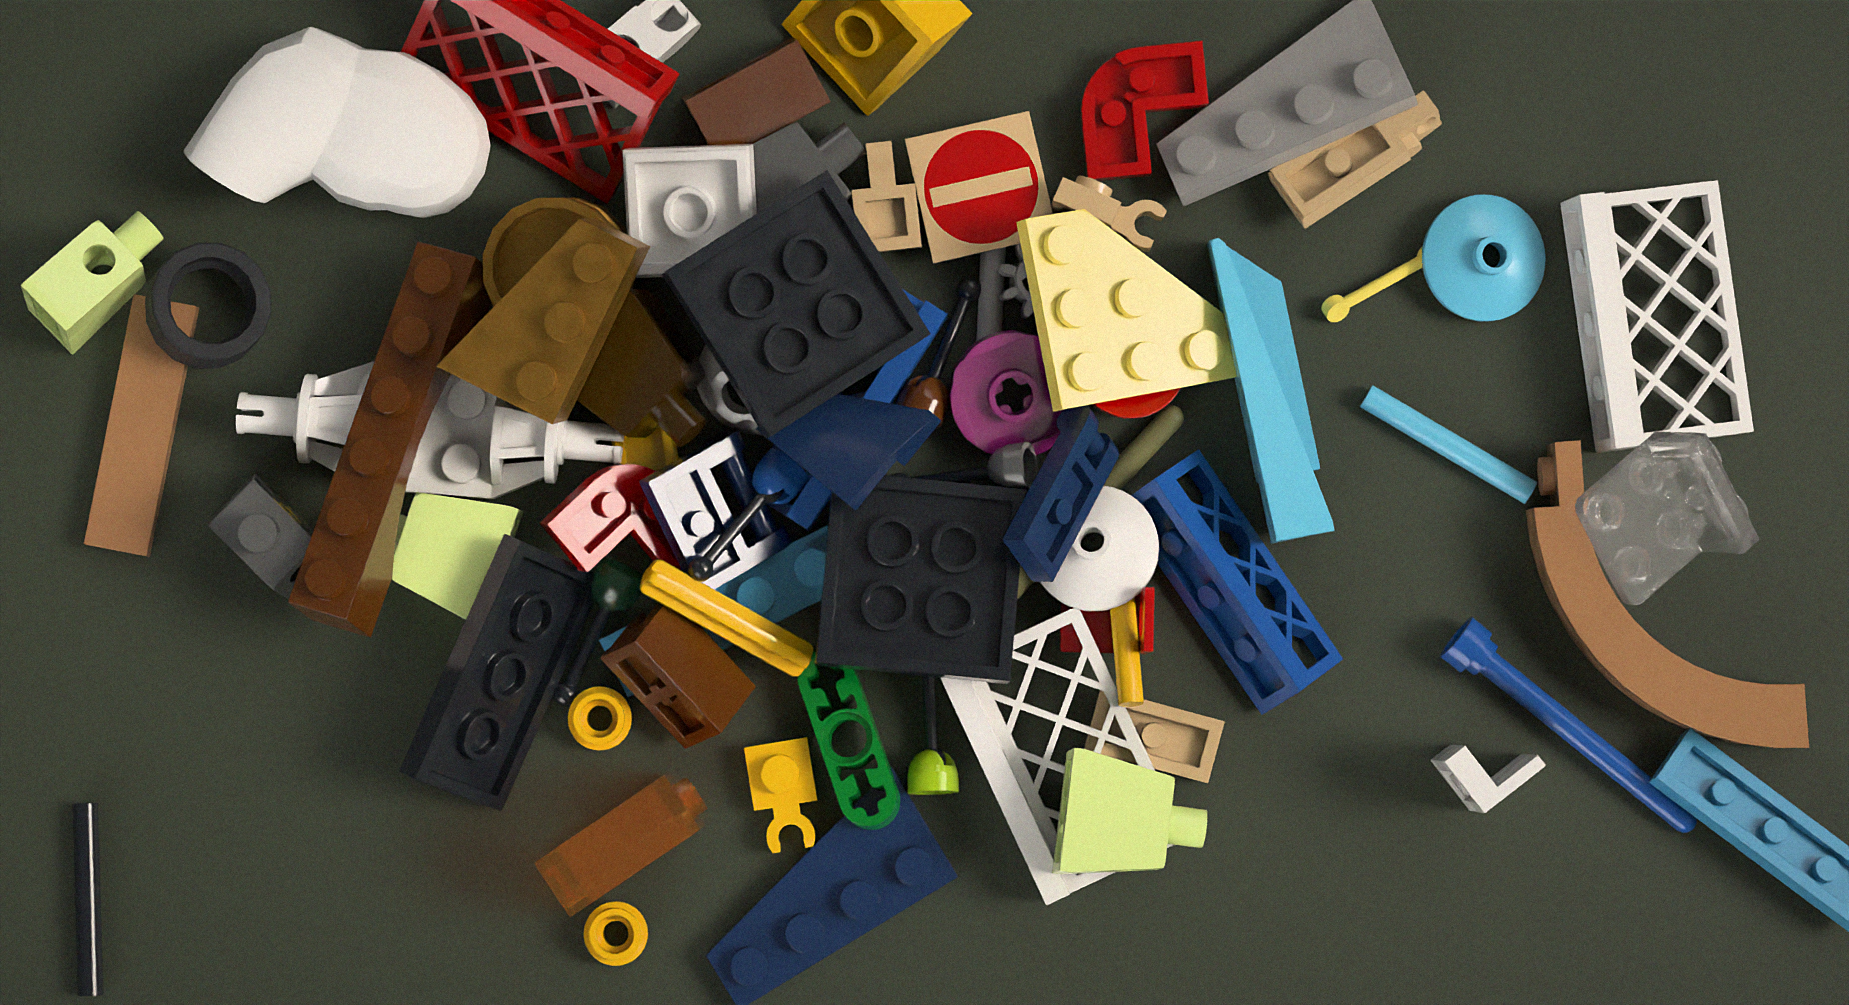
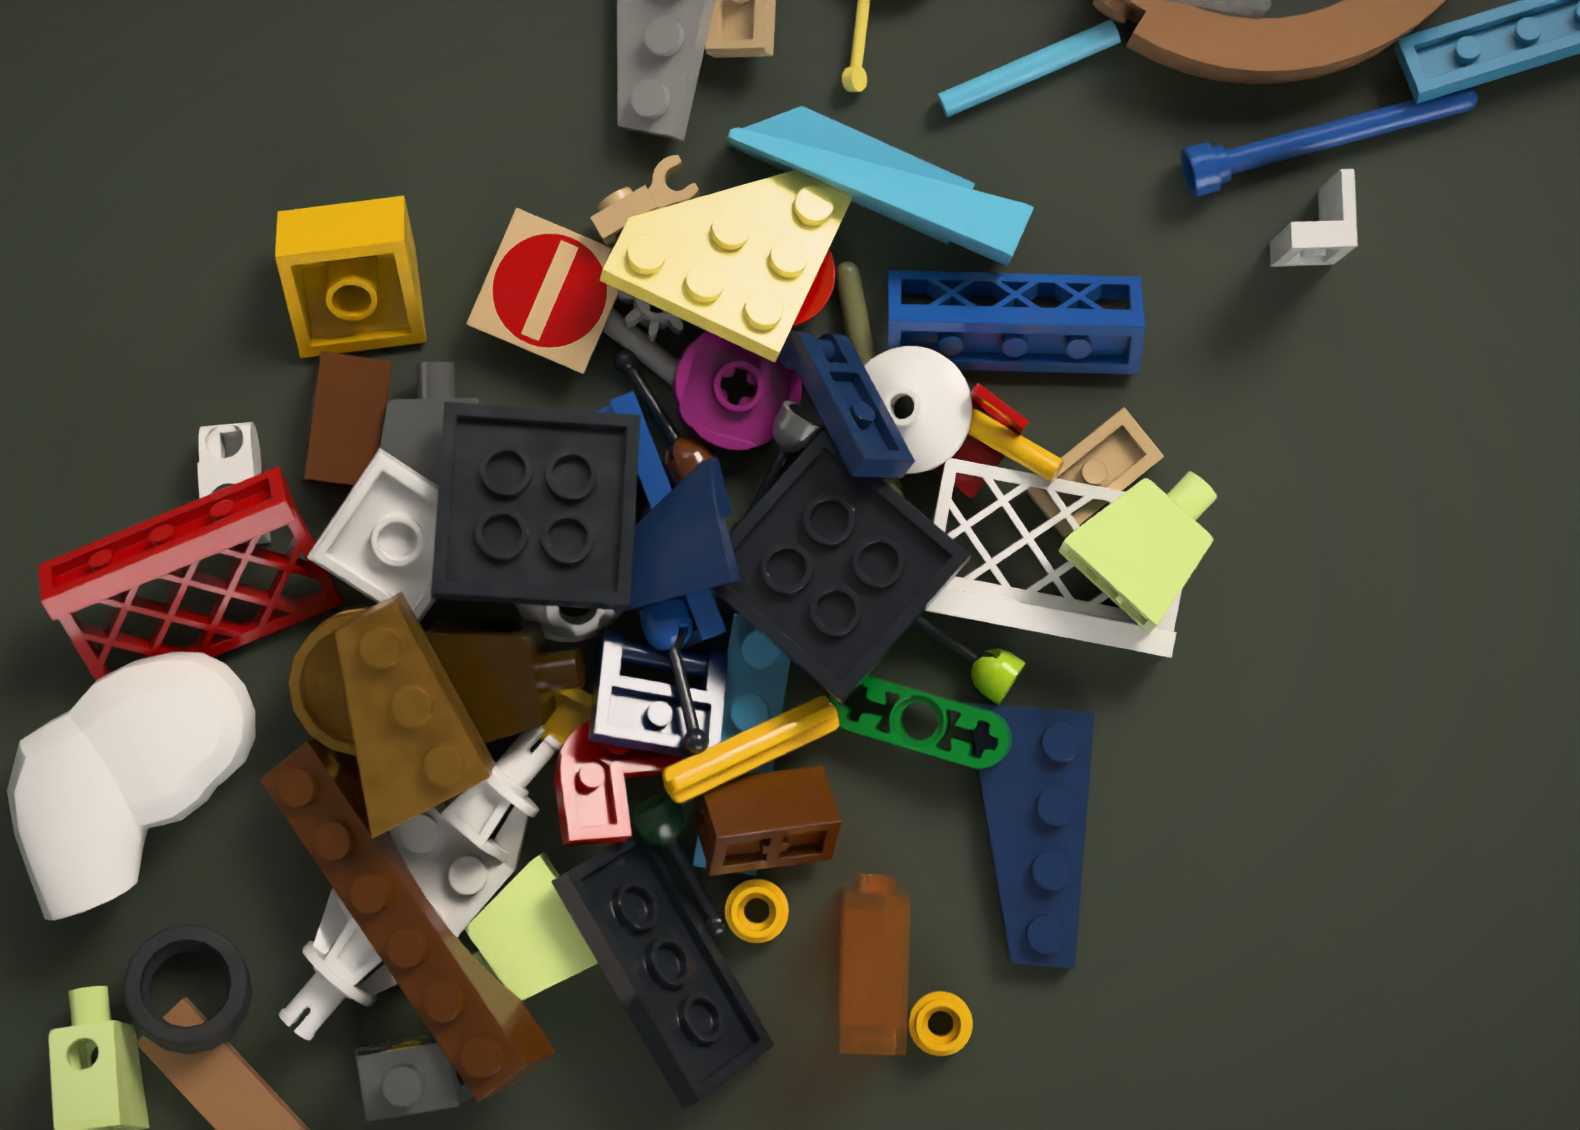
camera: 55 degrees left, 0 degrees up
(781, 780) = (914, 799): yellow plate -> none
(885, 208) = (509, 380): tan plate -> none
(1122, 94) = (558, 123): red plate -> none

